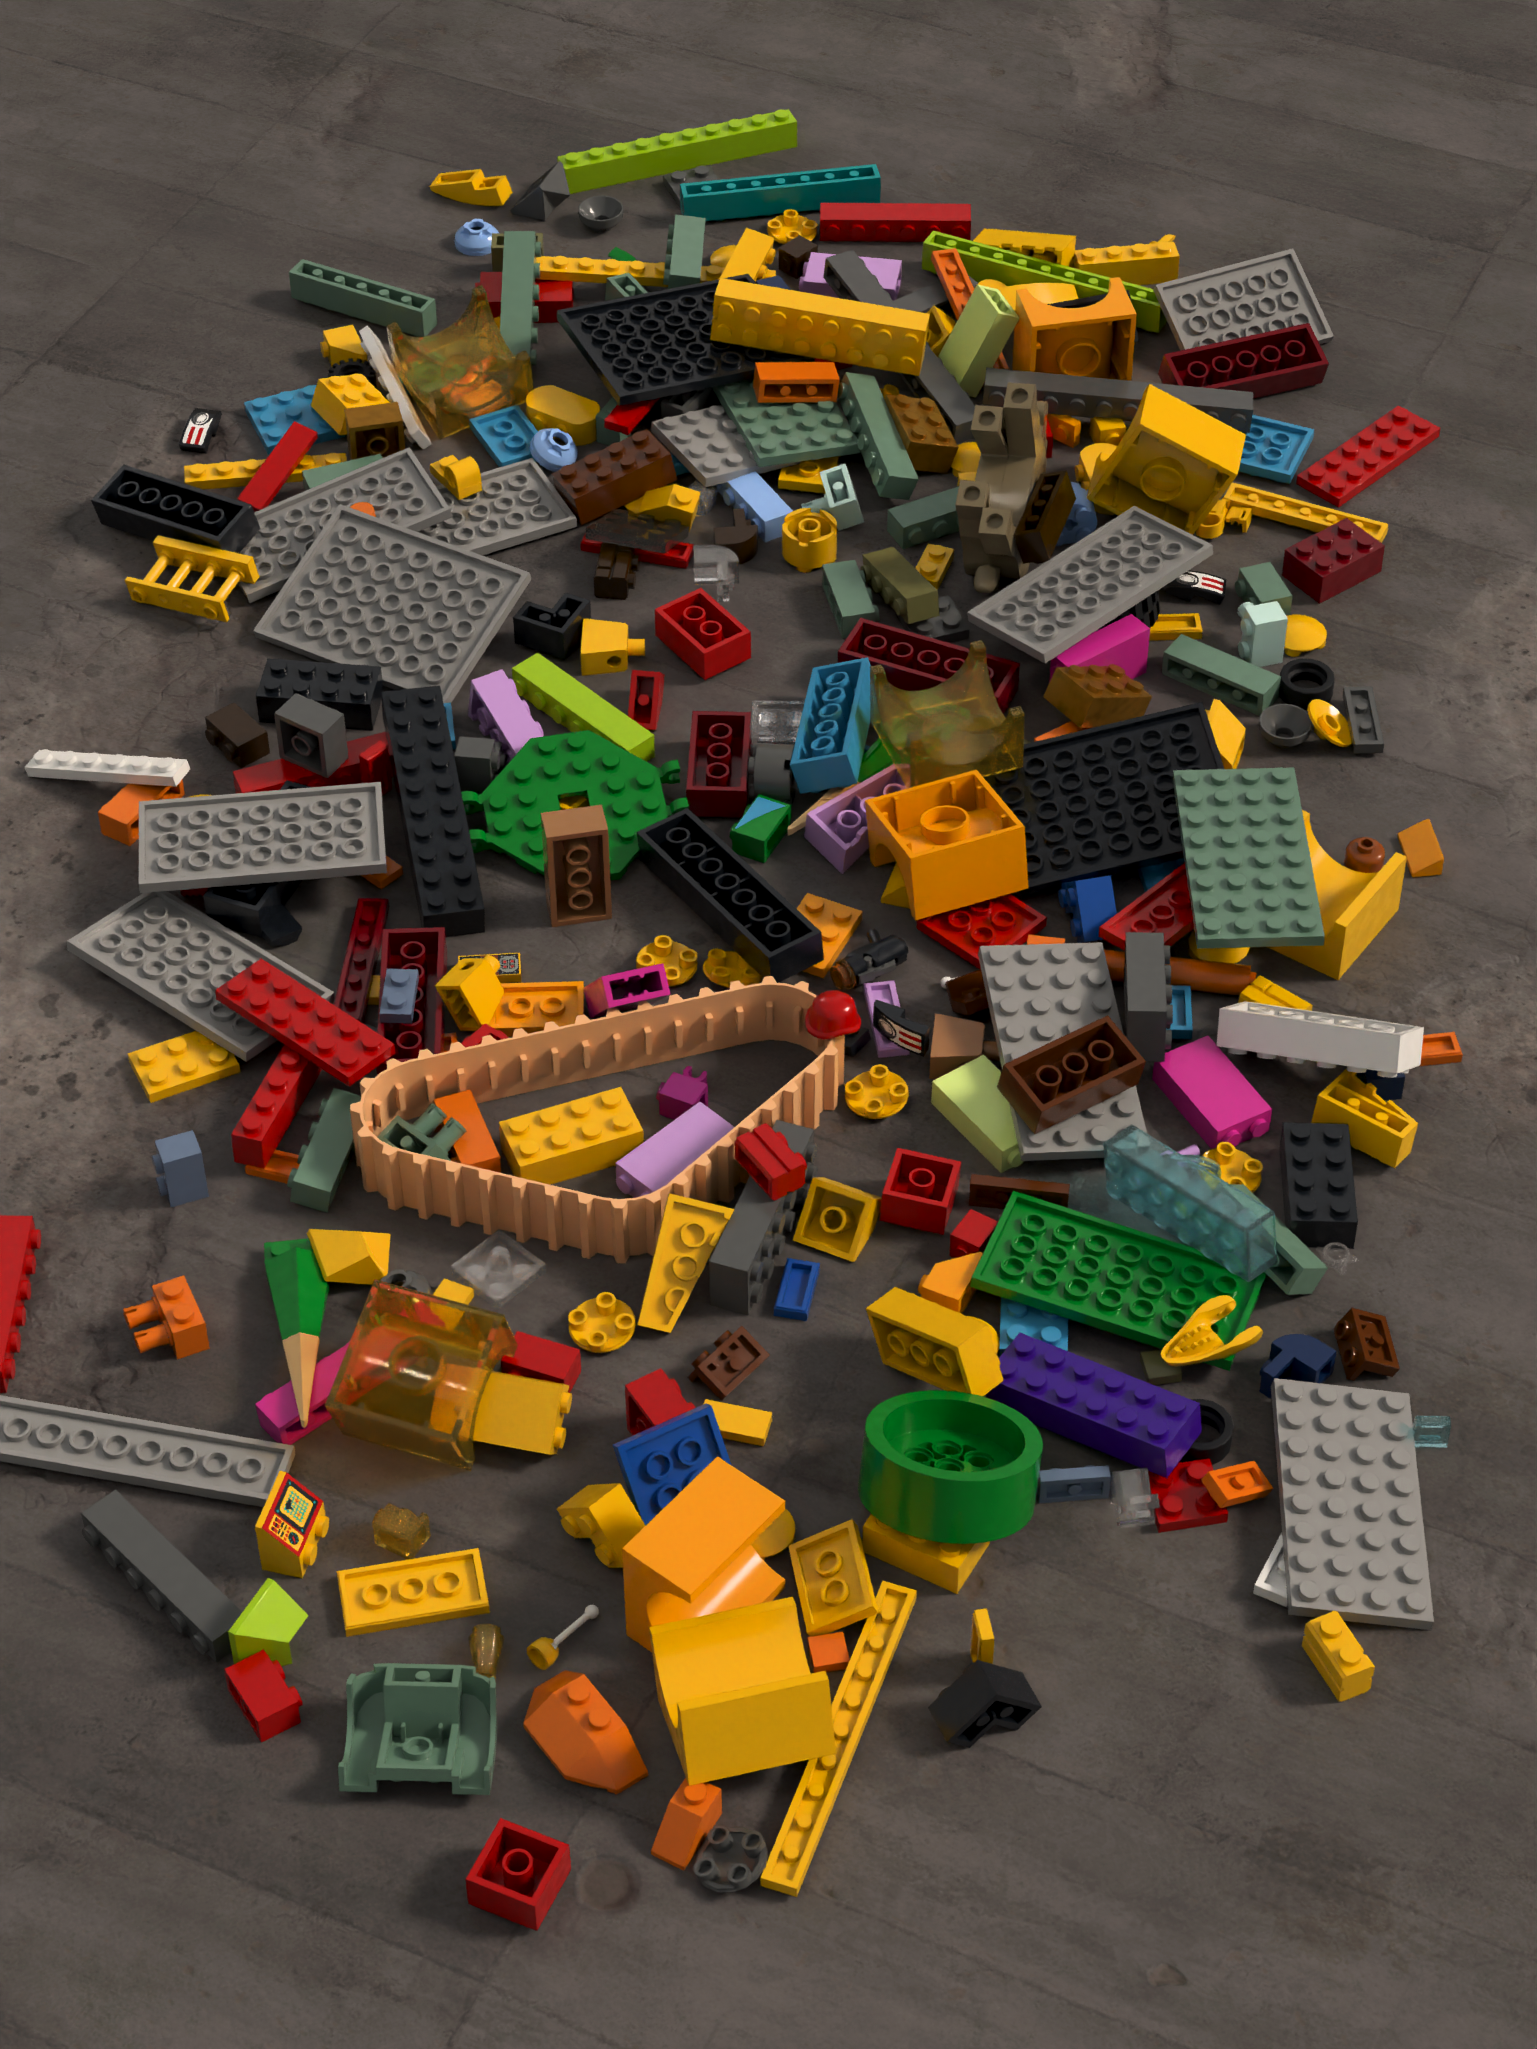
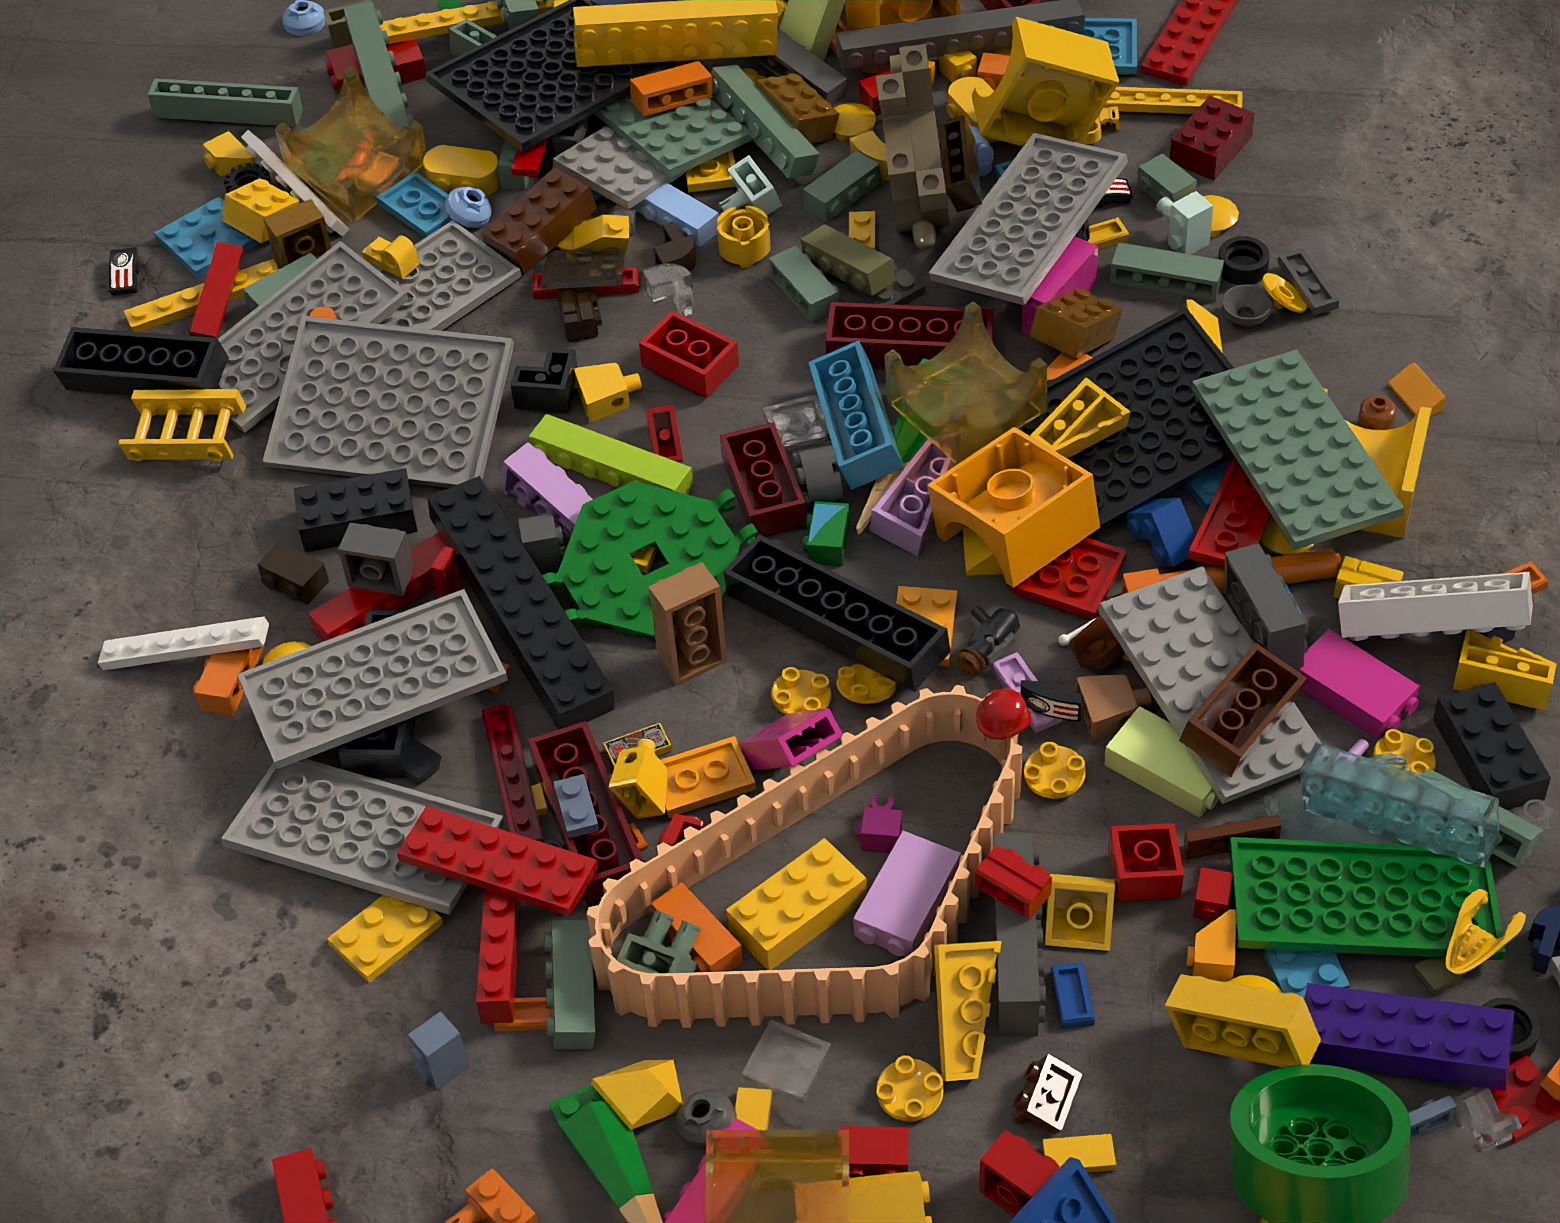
camera: 15 degrees left, 5 degrees up
(1045, 782) = (1082, 420): none -> yellow wedge

